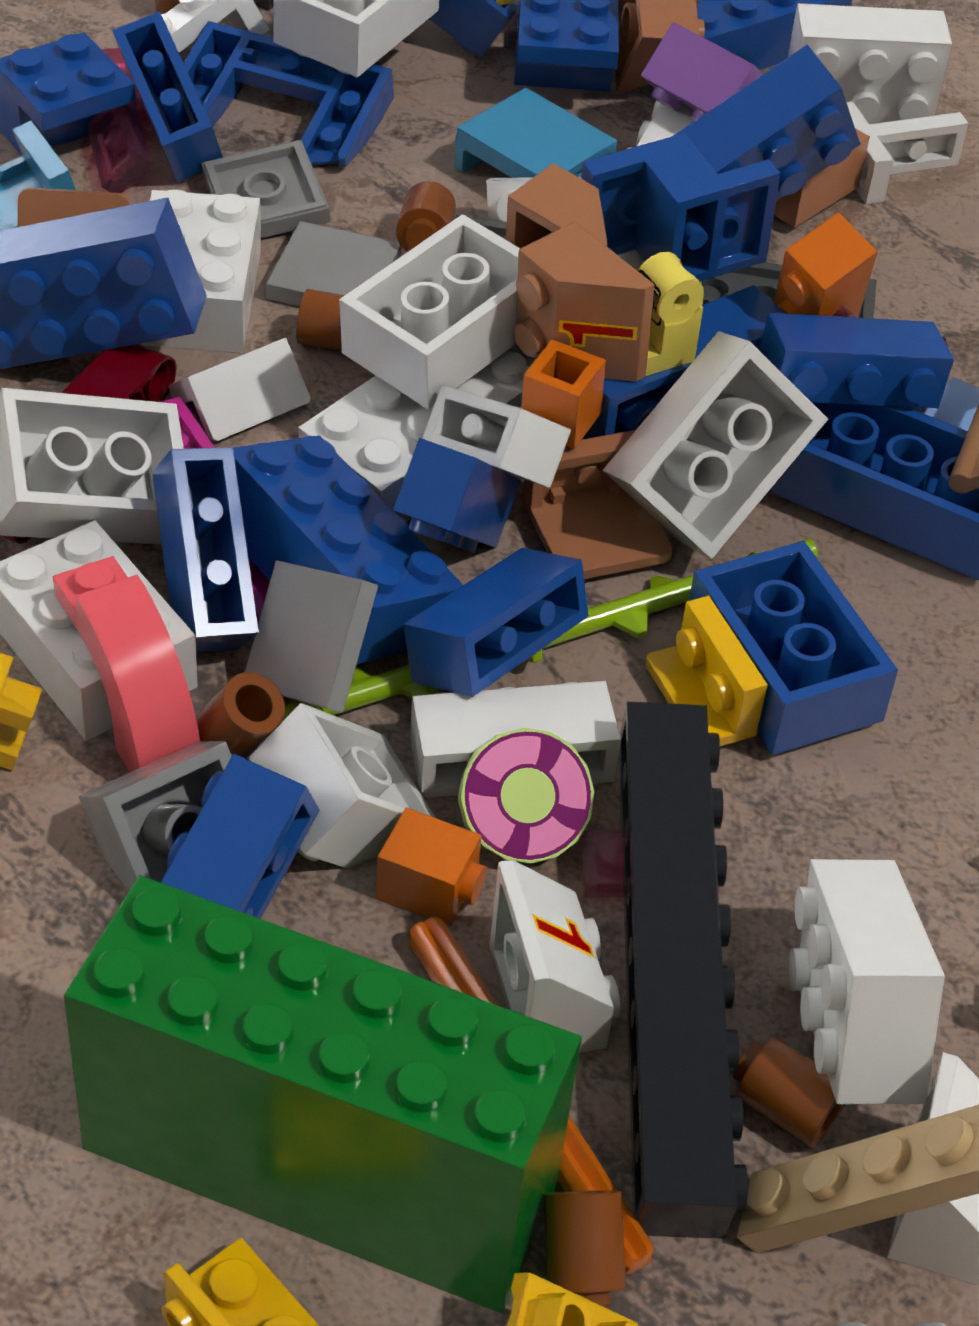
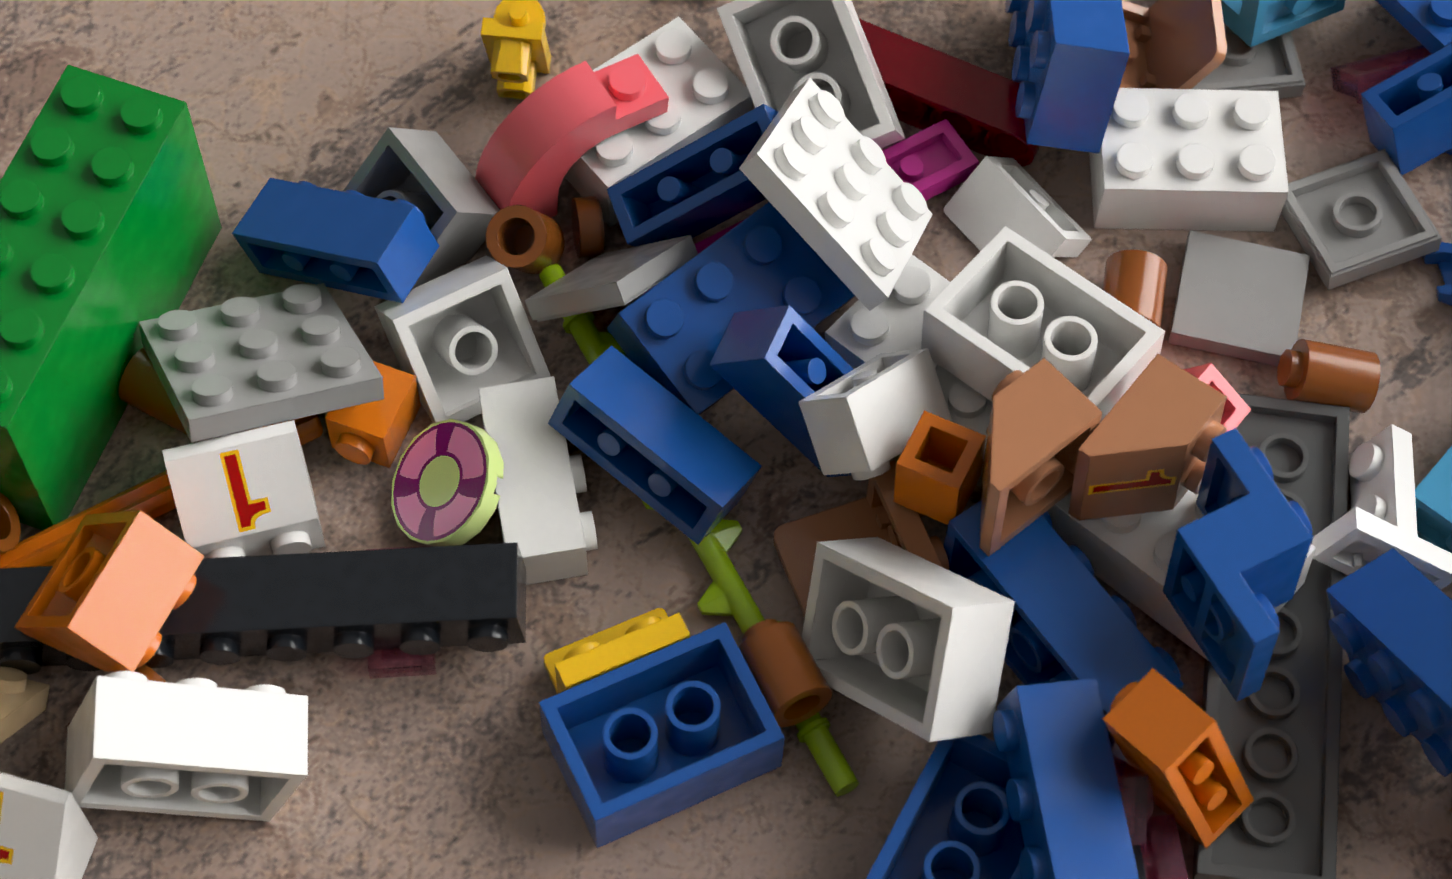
camera: 90 degrees right, 15 degrees up
(208, 675) = (587, 226): none -> reddish brown tile
(261, 422) = (838, 192): none -> white plate
(412, 900) = (259, 361): none -> light grey plate
(675, 312) = (1044, 550): light yellow leg -> none
(691, 1047) = (112, 591): none -> slope
(725, 543) = (785, 671): none -> dark orange brick

